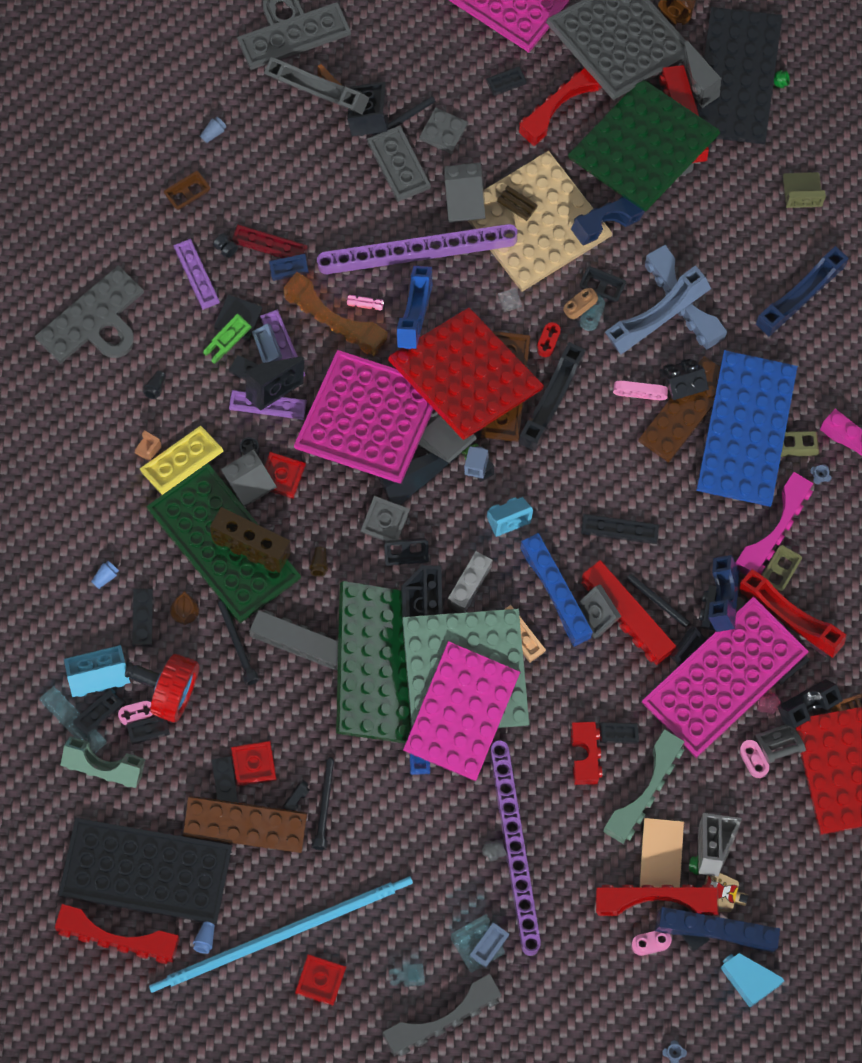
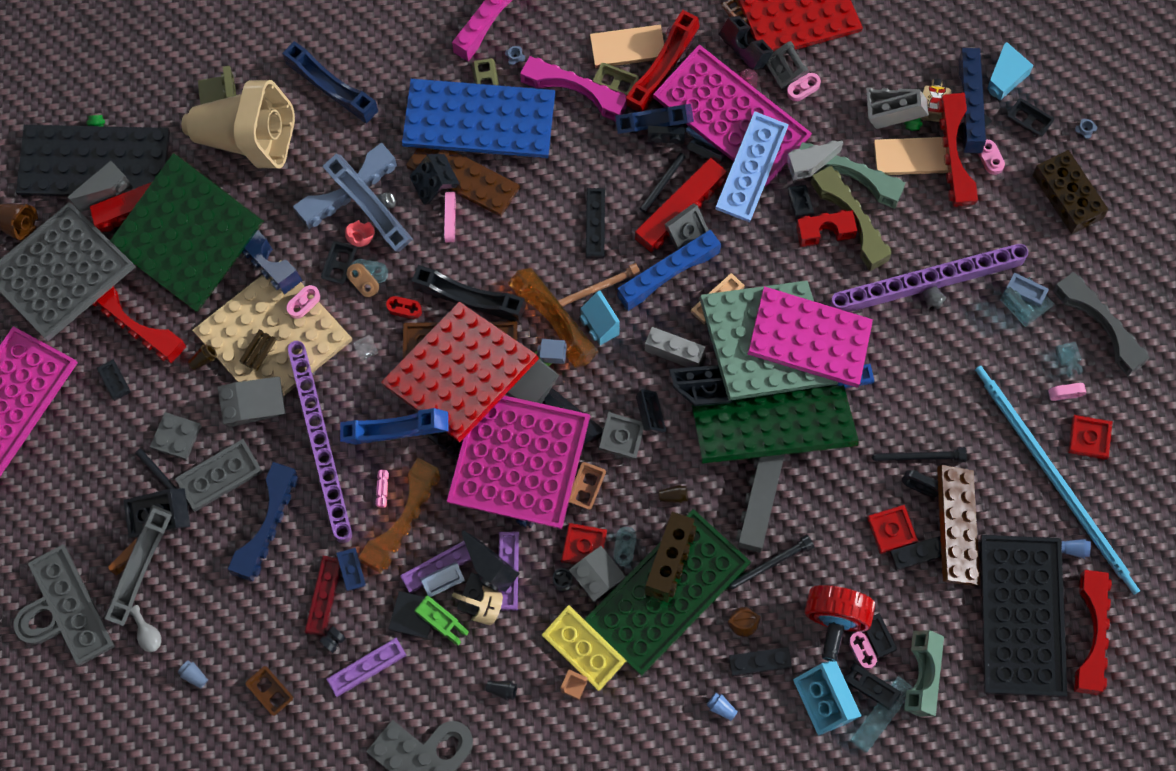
camera: 90 degrees left, 0 degrees up
(235, 385) = (491, 615): none -> tan helmet
(256, 95) = (147, 635): none -> light grey piece
(275, 509) = (625, 547): none -> clear light blue plate
(343, 478) = (579, 485): none -> nougat piece
(371, 963) = (1067, 391): none -> bright pink beam
(380, 213) = (247, 559): none -> dark blue arch
(518, 157) = (202, 357): none -> dark brown cone
(551, 454) = (529, 286): none -> clear orange arch
(557, 795) = (831, 188): none -> olive arch
(559, 556) = (630, 272): none -> nougat piece
(562, 246) = (301, 301): none -> bright pink plate
(600, 1001) = (1070, 192): none -> dark brown brick
(630, 304) = (359, 233): none -> coral hair
(656, 739) = (808, 161): none -> light grey slope
(660, 685) = (751, 167): none -> light blue plate
(665, 332) = (387, 199): none -> dark grey arm
(686, 989) = (1033, 114): none -> black piece
(753, 209) = (247, 124): none -> tan cone
(822, 586) = (627, 45): none -> light nougat tile

